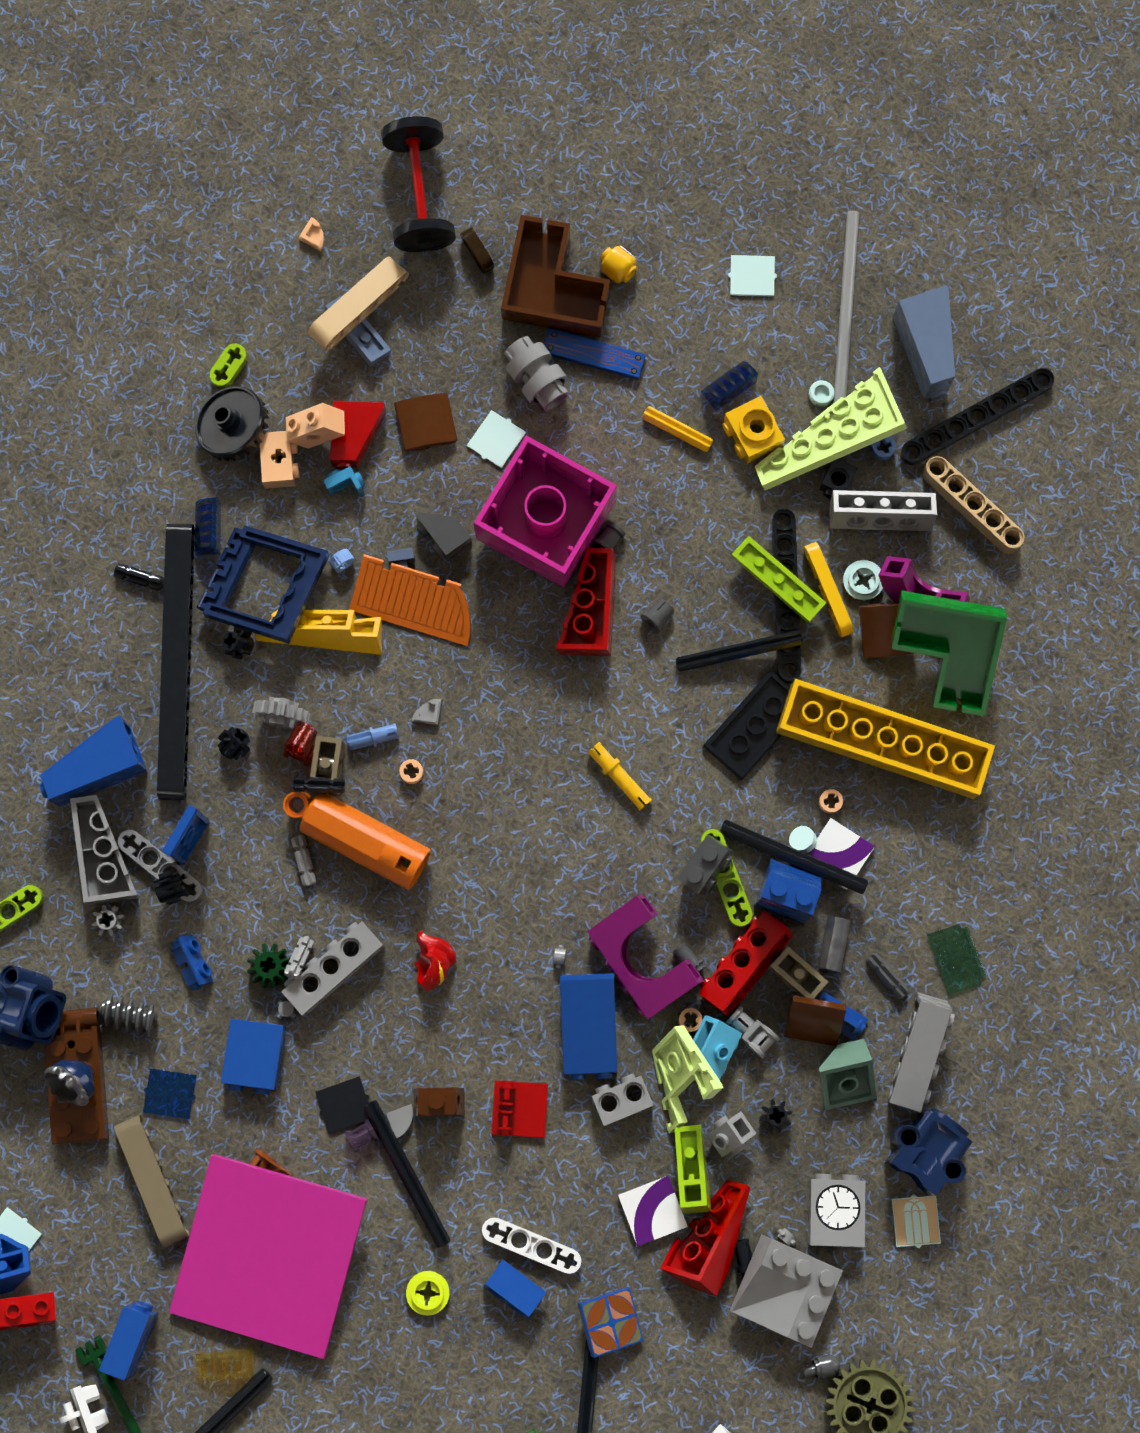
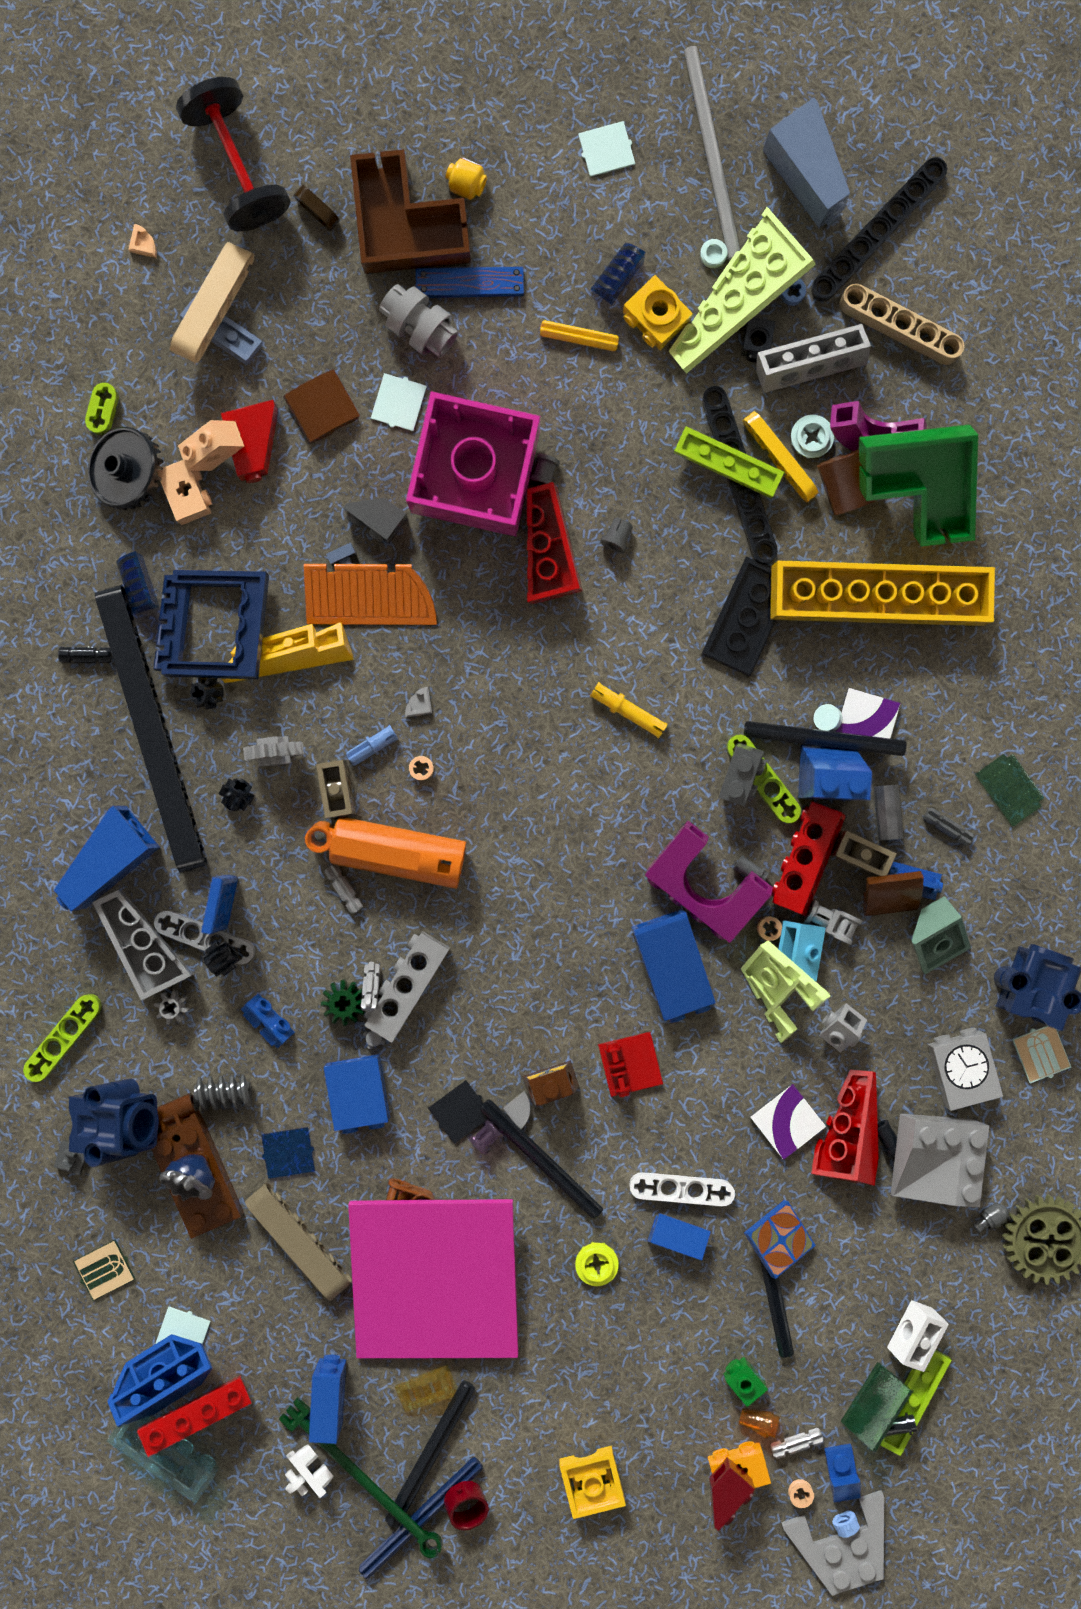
camera: 15 degrees left, 10 degrees up
(301, 743) = (303, 775): clear red piece -> none
(319, 784) = (335, 813): black axle -> none
(340, 479) = (253, 494): dark azure bracket -> none
(342, 560) = (283, 576): light blue axle -> none
(434, 961) = (504, 949): red hair -> none
(559, 956) = (623, 905): light grey piece -> none
(624, 1105) = (731, 1032): light grey brick -> none
(692, 1170) = (815, 1072): lime slope -> none
(739, 650) = (710, 547): black axle -> none
(768, 1111) = (887, 997): black gear -> none
(786, 1237) = (923, 1107): light grey piece -> none
(824, 796) = (851, 675): light nougat bush -> none
(921, 1052) = (1004, 891): light grey wedge -> none

